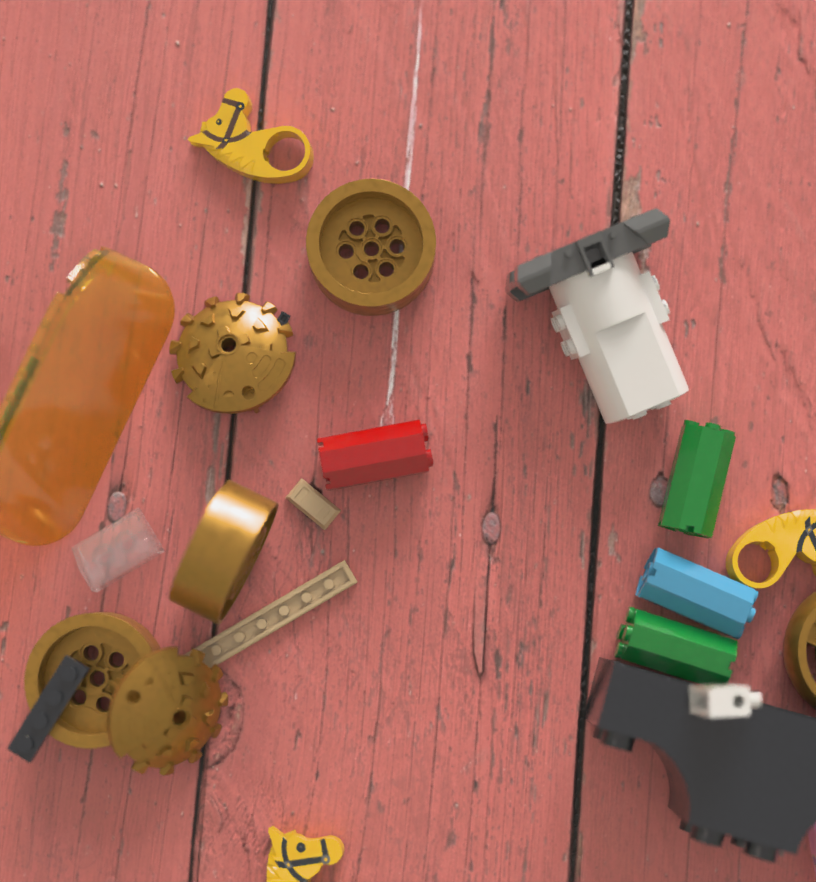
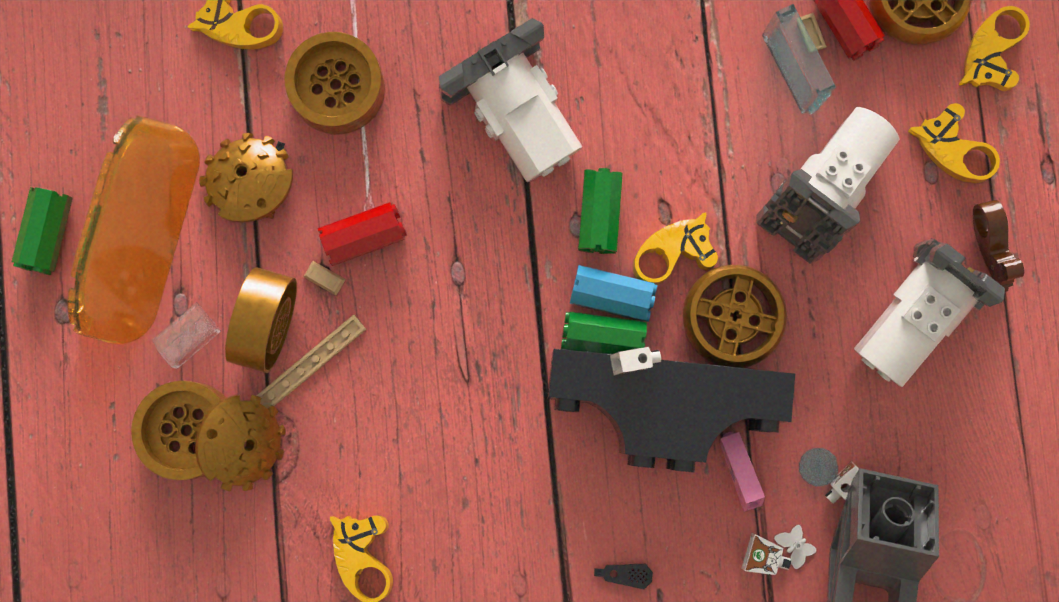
camera: 10 degrees left, 0 degrees up
(48, 708) = (153, 455): black plate -> none

